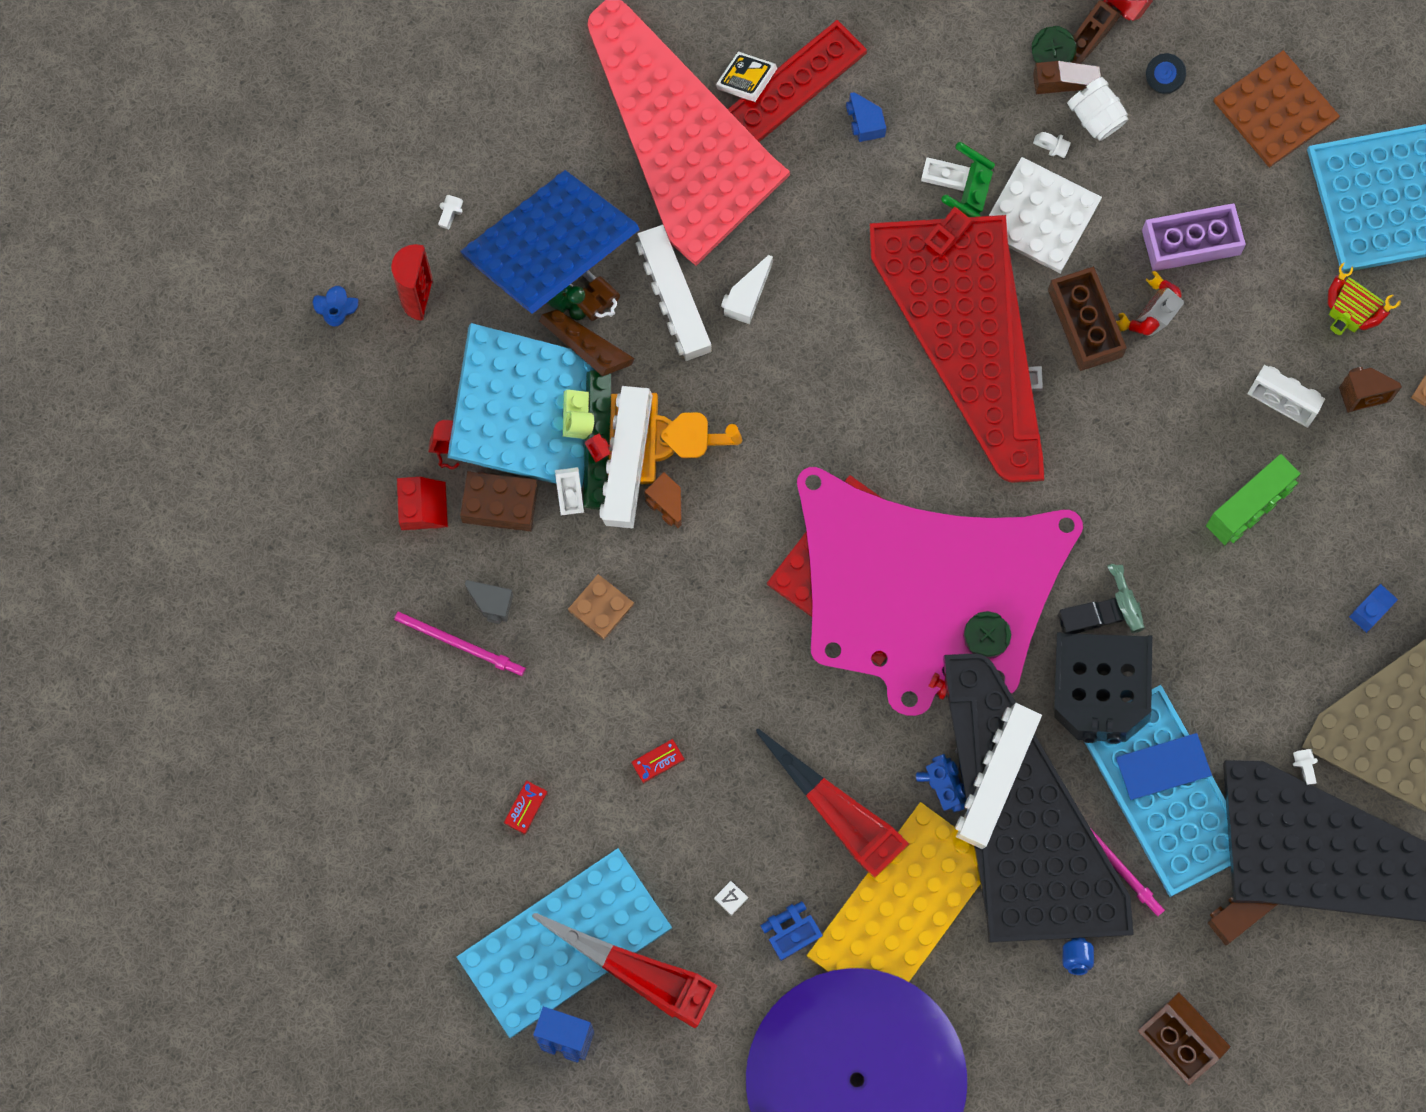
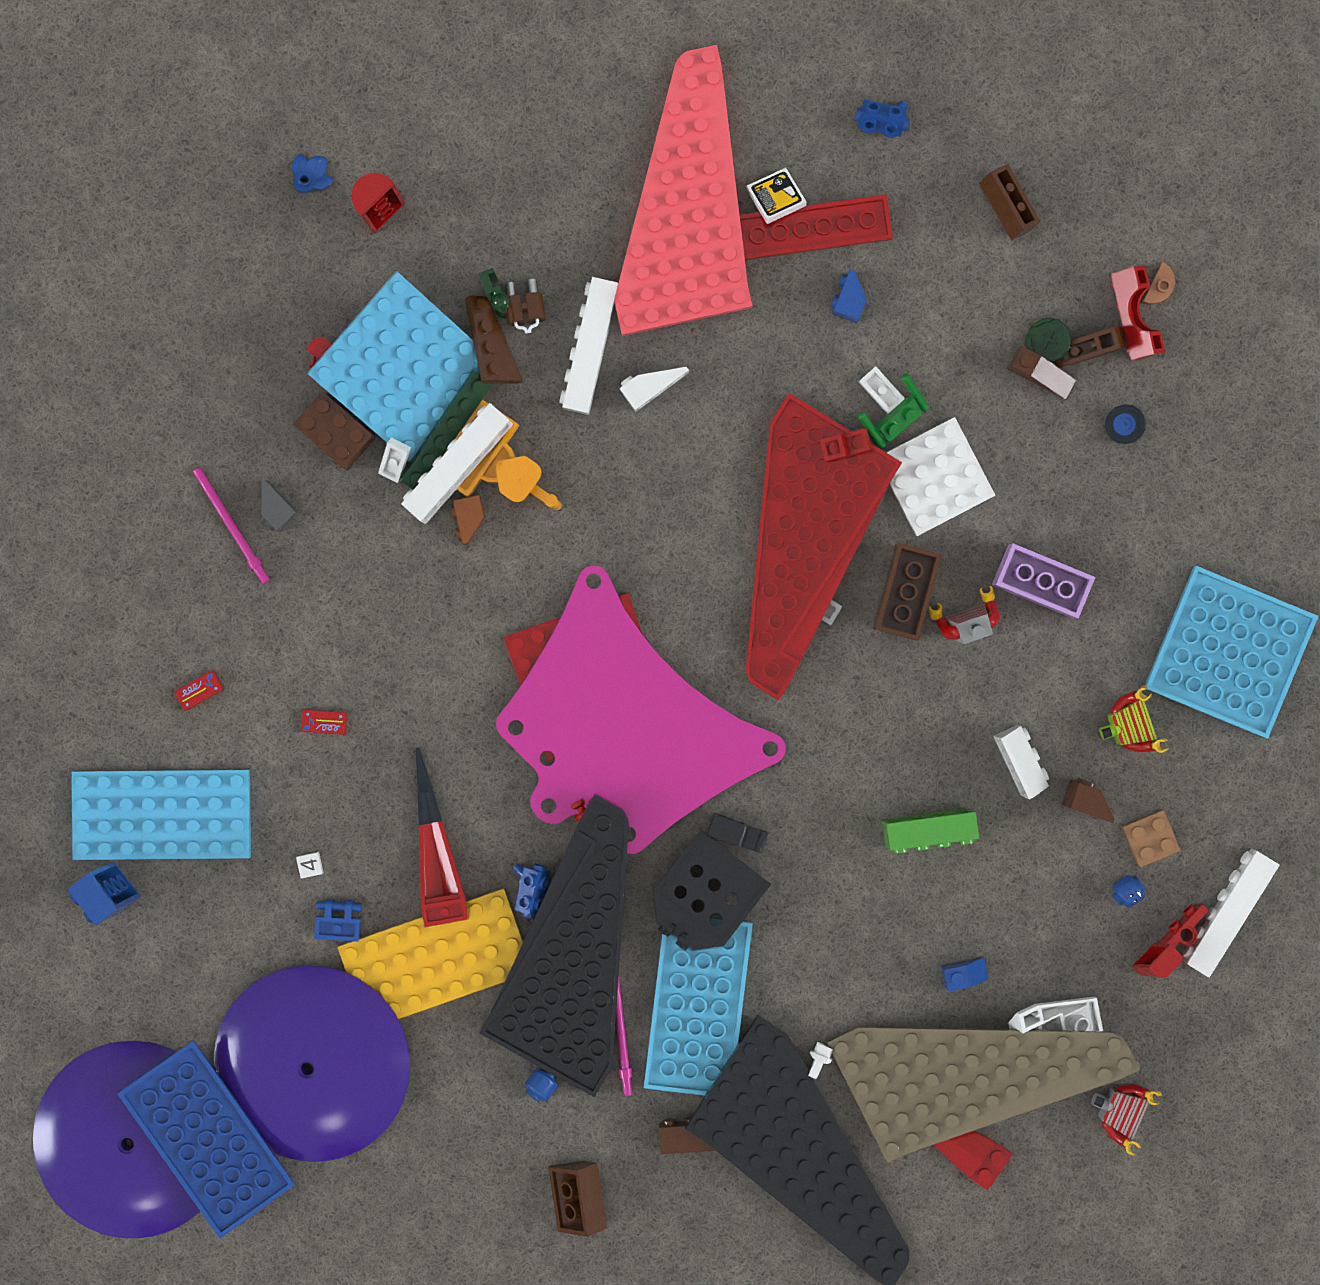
camera: 30 degrees right, 15 degrees up
(421, 503) = (273, 391): red slope -> none
(450, 207) = (457, 150): white piece -> none
(549, 241) = (511, 239): blue plate -> none
(576, 419) = (439, 401): yellowish green plate -> none
(597, 447) = (437, 441): red plate -> none
(601, 606) = (361, 569): medium nougat plate -> none
(668, 987) = (213, 902): red plate -> none
(987, 634) = (643, 796): dark green tile -> none
(998, 776) = (570, 916): white brick -> none
(1056, 145) = (991, 426): white piece -> none
(1099, 109) = (1045, 420): white piece -> none
(1127, 603) = (773, 839): sand green animal -> none
(1163, 766) = (708, 987): blue window -> none
(1276, 108) = (1195, 514): dark orange plate -> none

